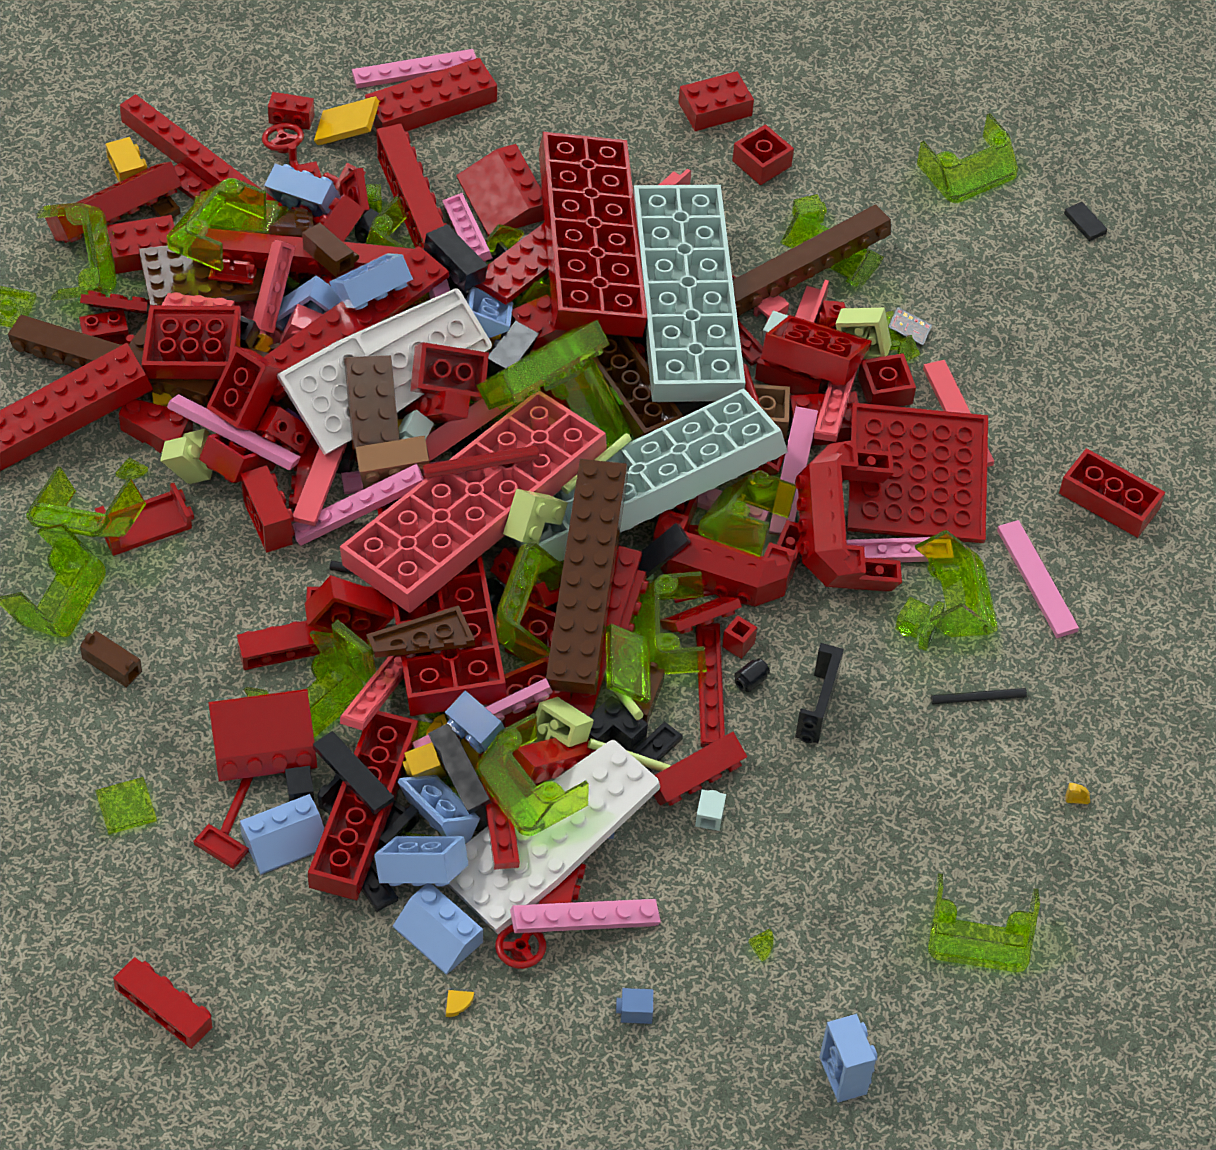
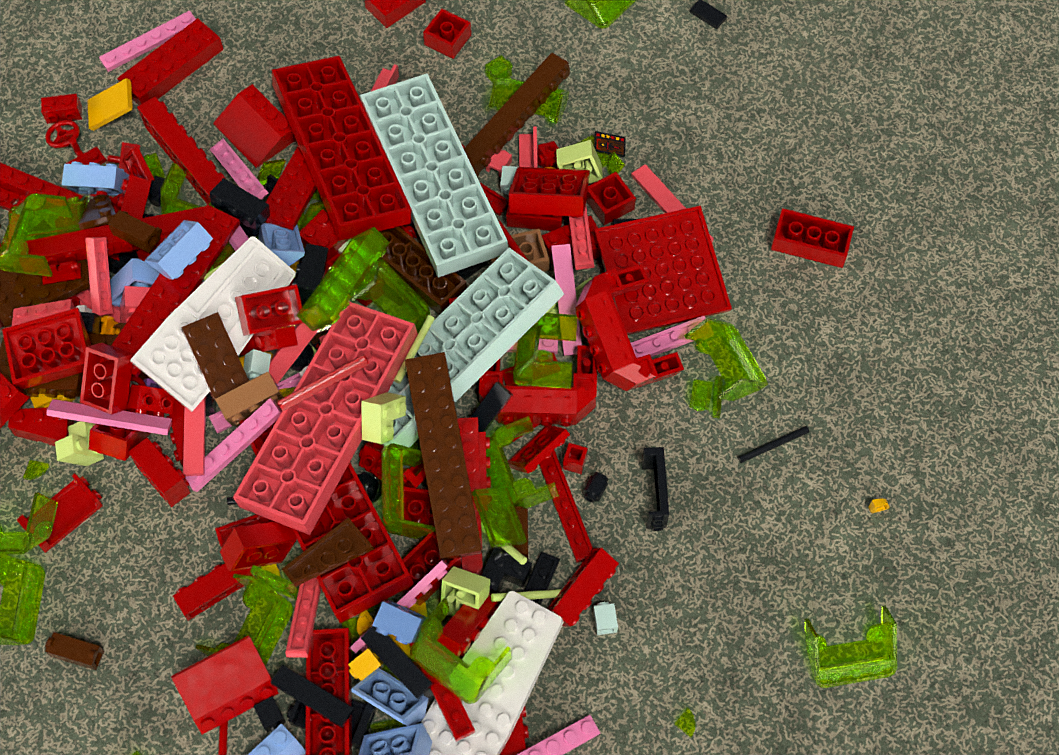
camera: 15 degrees left, 10 degrees up
(1037, 579) = (781, 328): bright pink tile -> none

